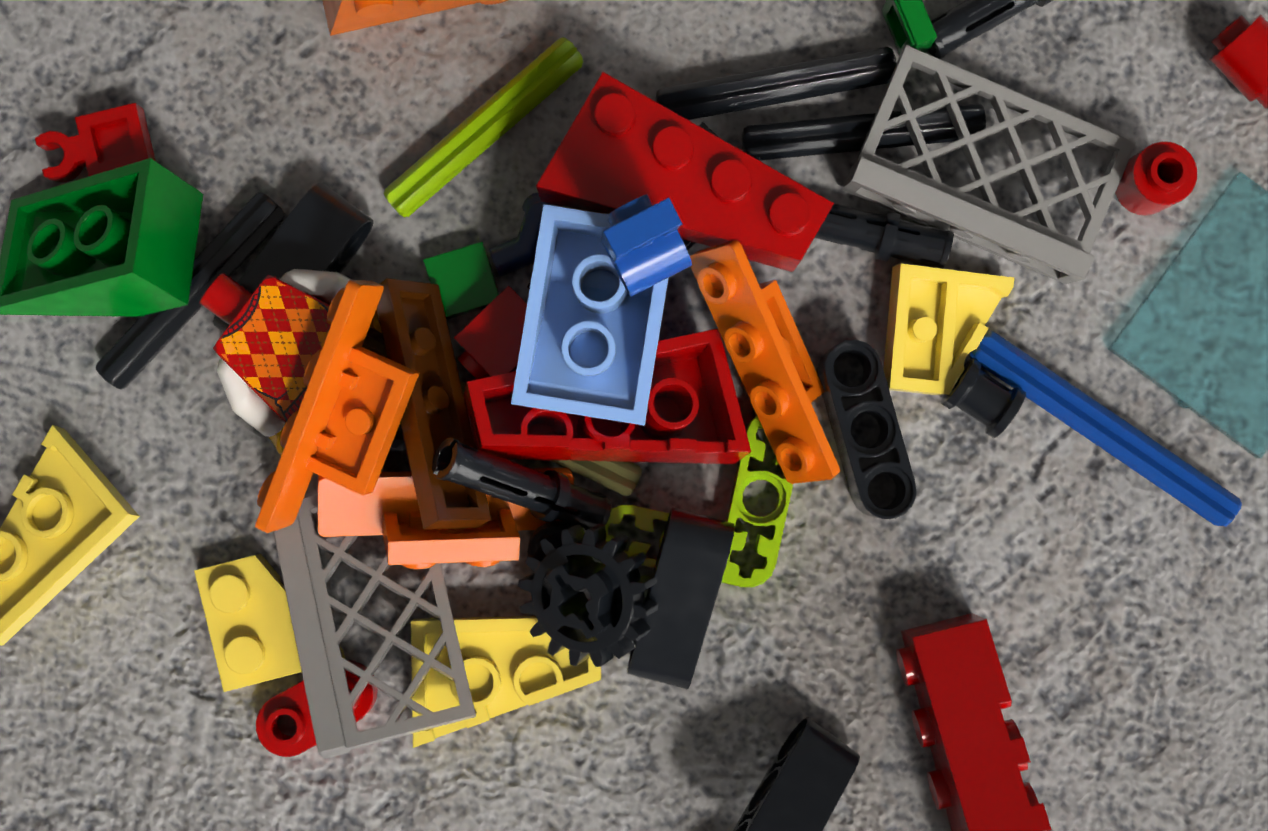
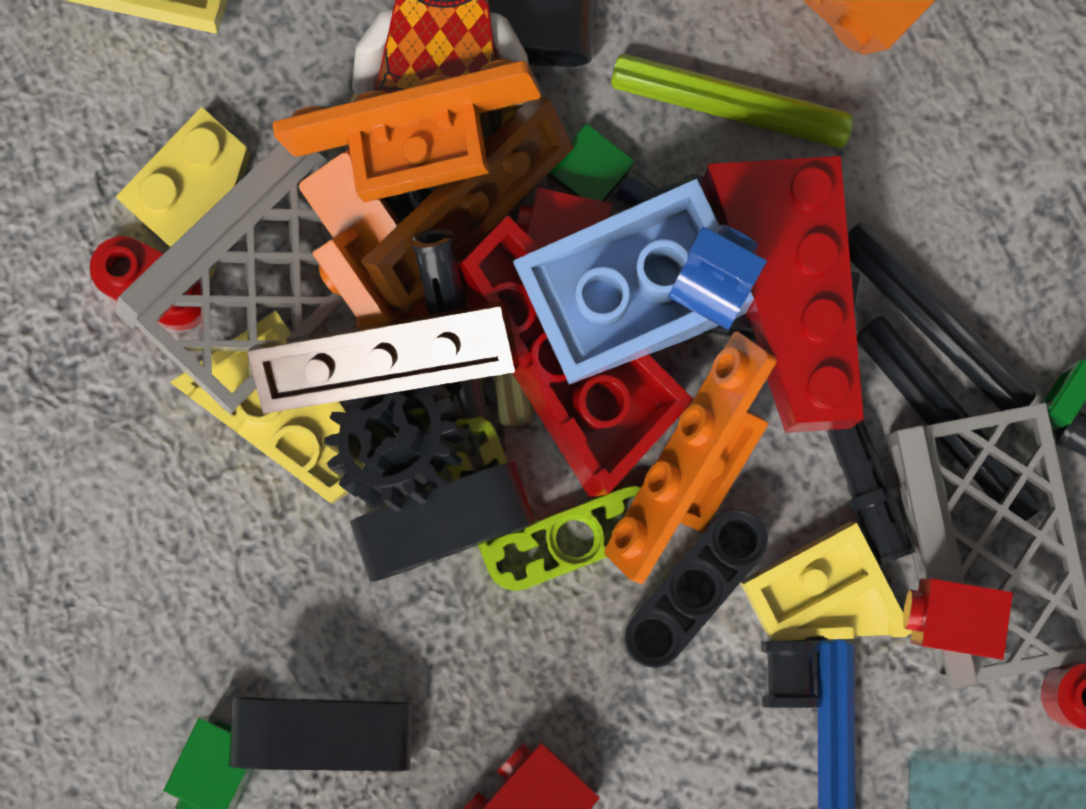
camera: 55 degrees right, 5 degrees down
(517, 562) = (384, 357): none -> plate
(1039, 235) = (958, 617): none -> red brick

